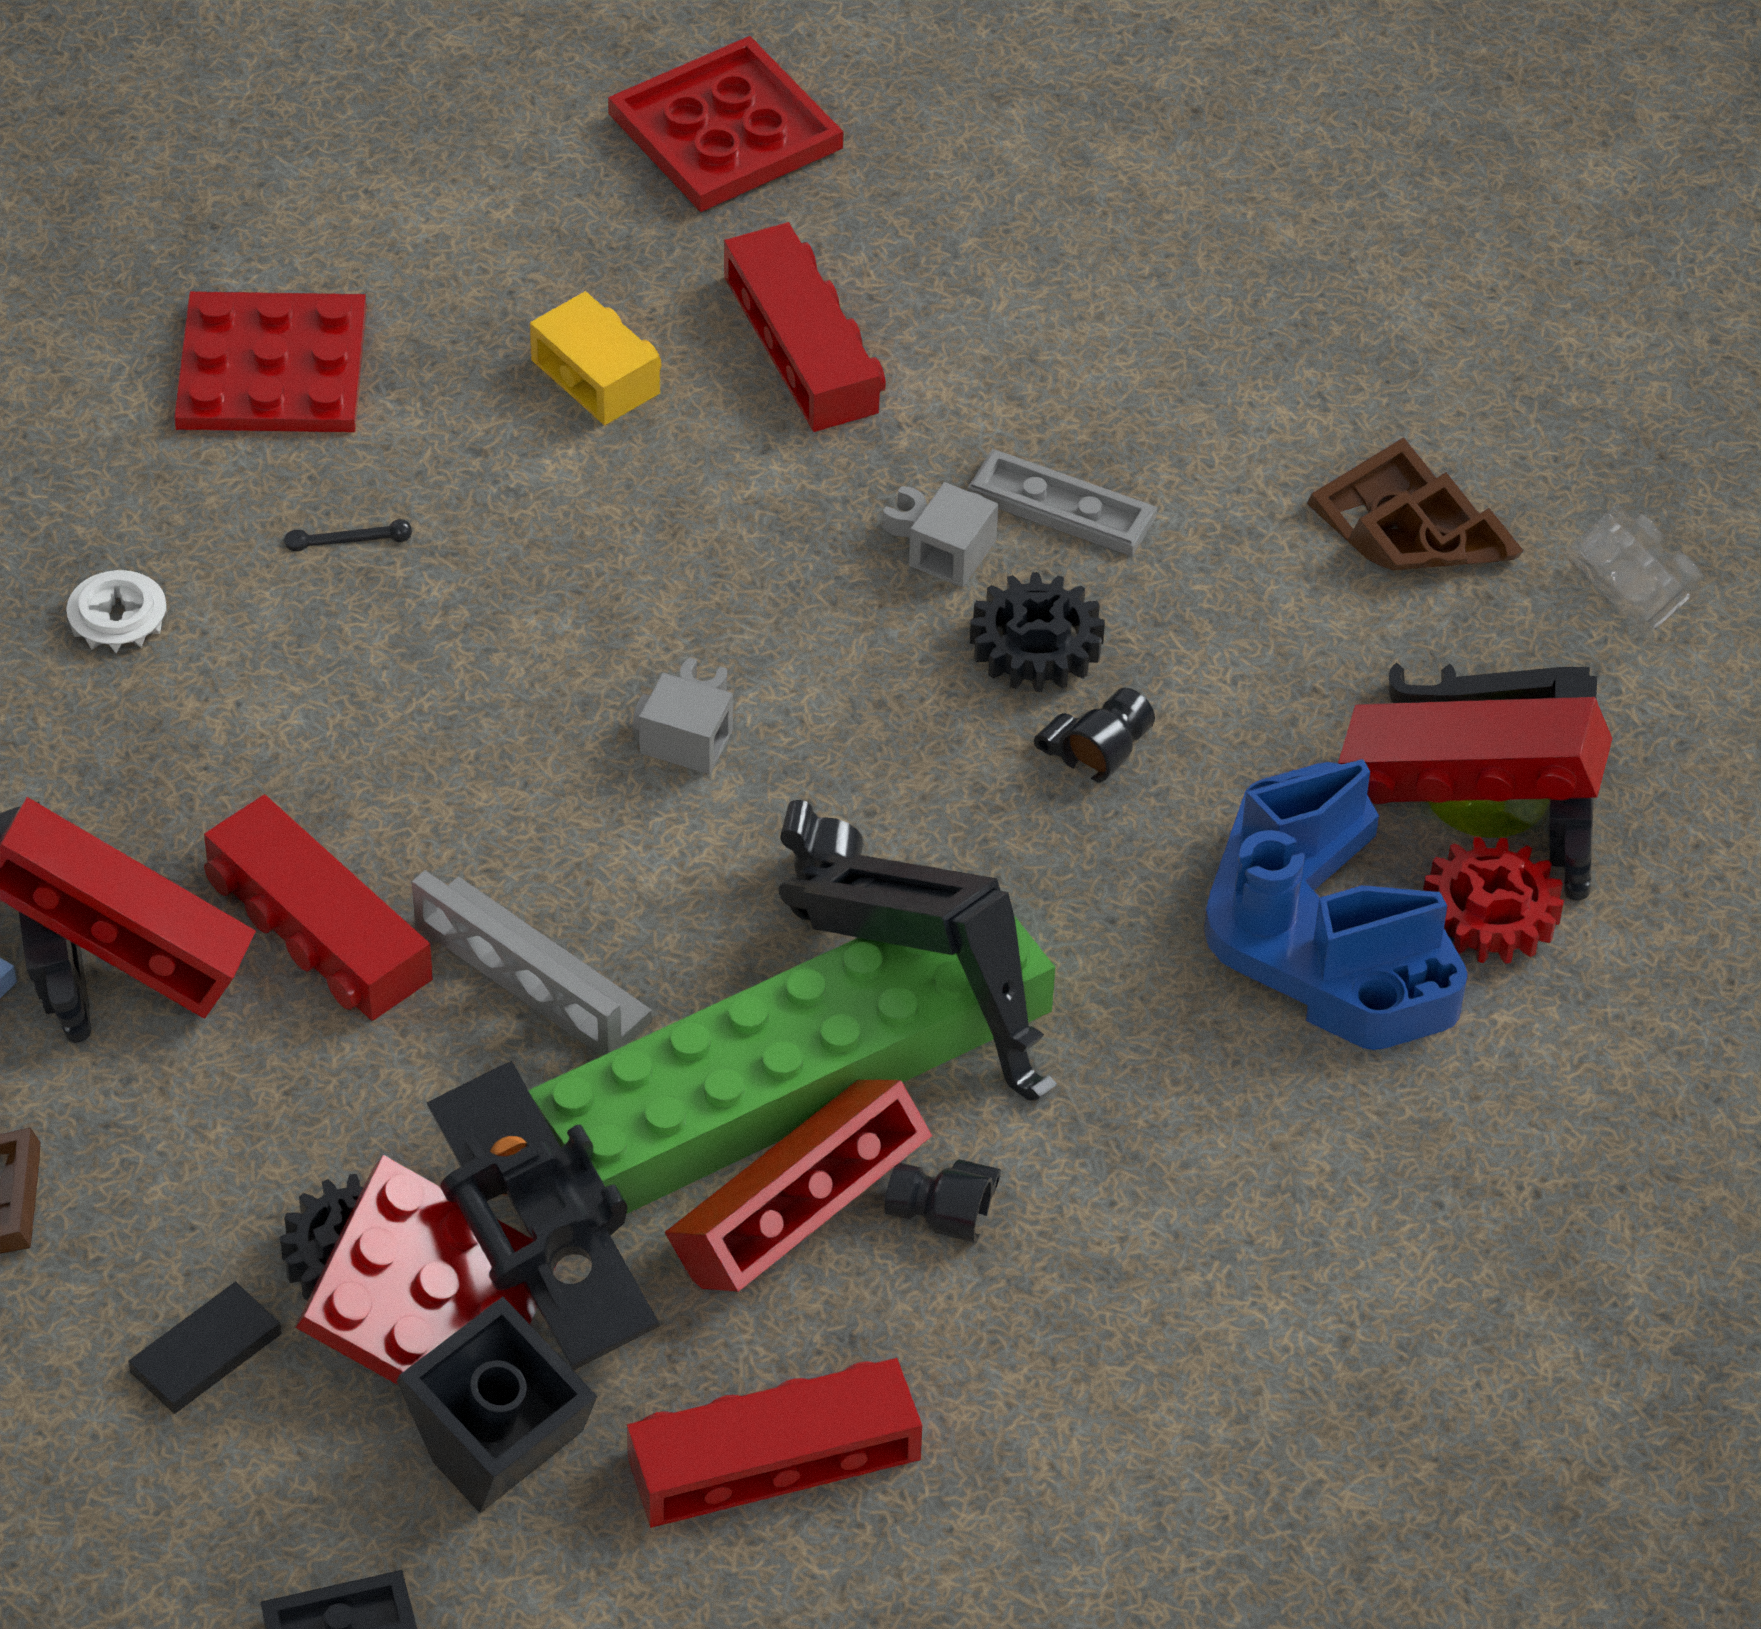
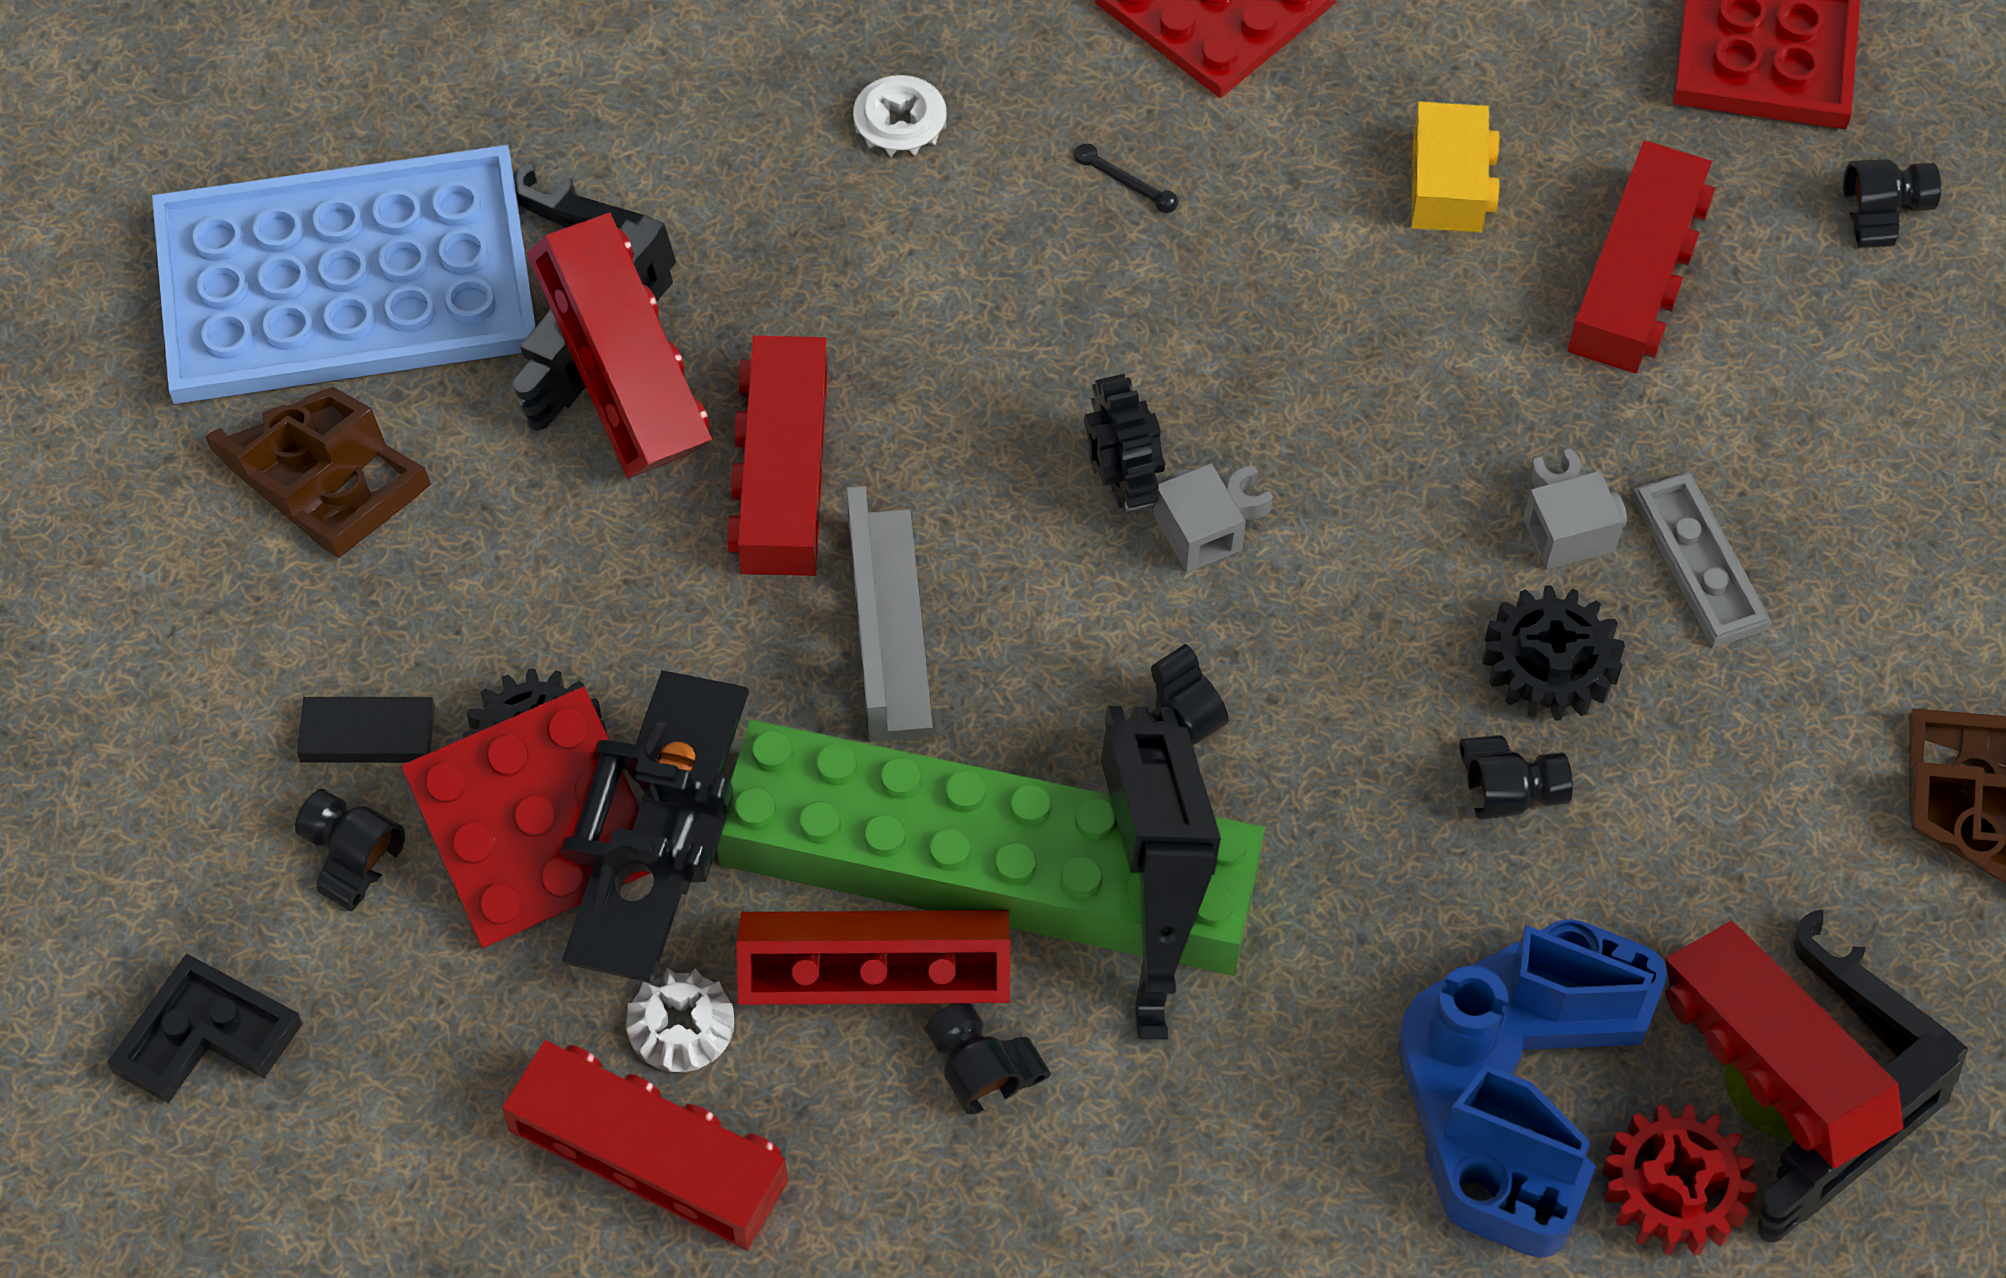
camera: 45 degrees right, 10 degrees up
(300, 1424) = (354, 841): none -> black piece
(494, 1403) = (474, 941): black slope -> none
(583, 703) = (1124, 442): none -> black gear
(719, 1361) = (679, 1048): none -> white gear
(920, 172) = (1882, 191): none -> black piece

